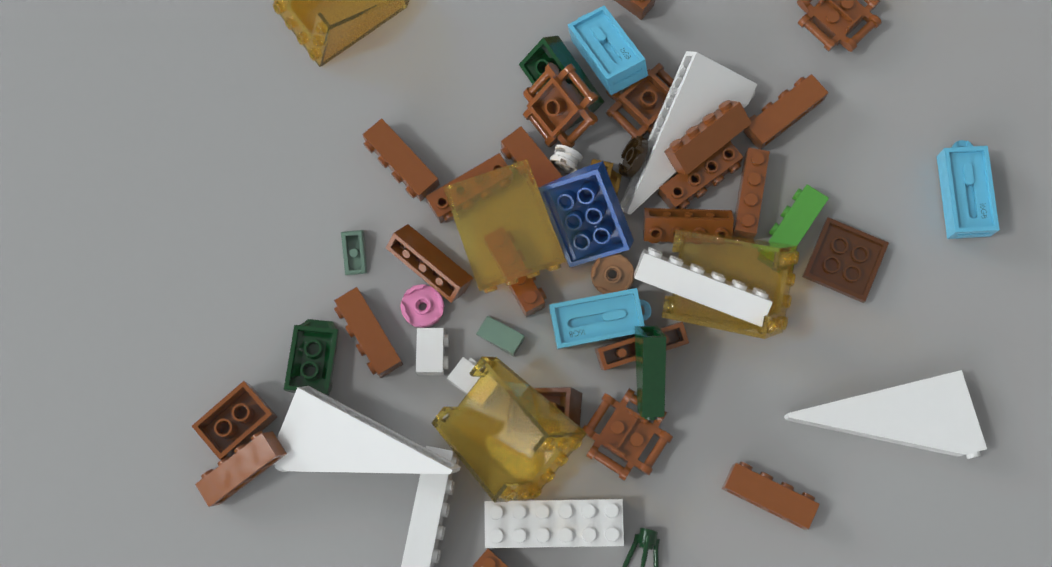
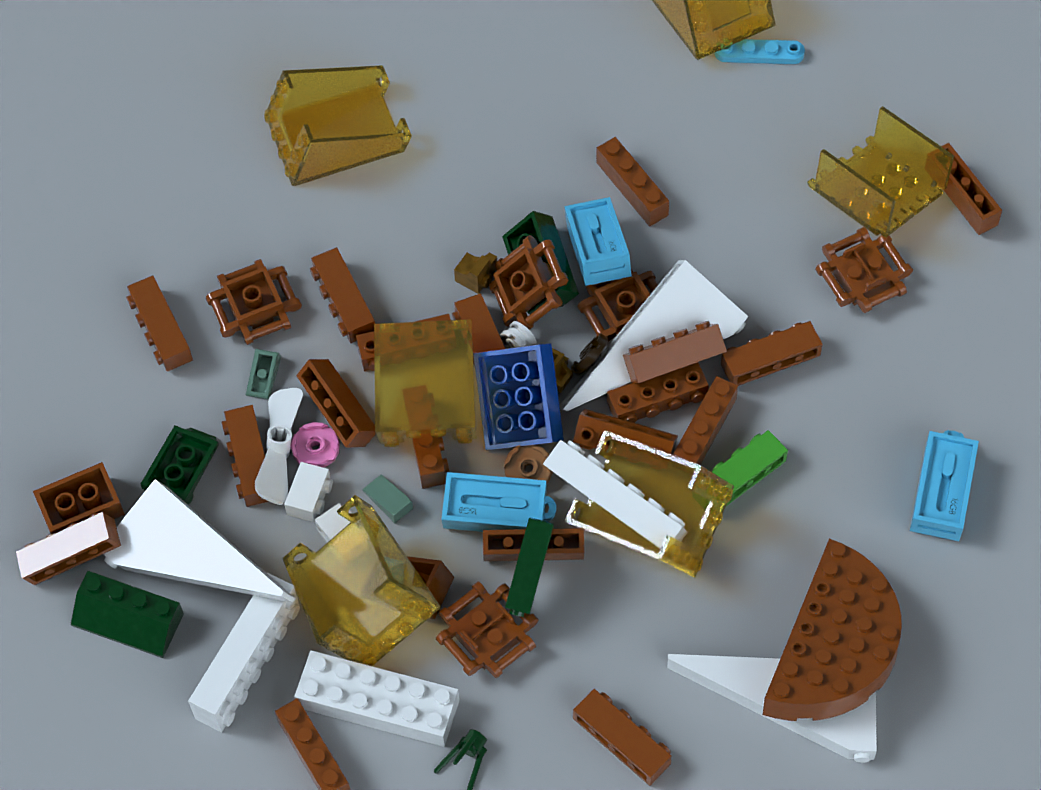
camera: 15 degrees right, 15 degrees down
(248, 232) = (160, 324): none -> dark orange brick
(310, 511) = (126, 614): none -> dark green slope
(323, 186) = (253, 301): none -> dark orange brick
(383, 281) = (272, 477): none -> white piece
(508, 105) = (475, 271): none -> pearl gold brick
(845, 260) = (787, 521): reddish brown plate -> none
(930, 360) = (839, 642): none -> dark orange brick

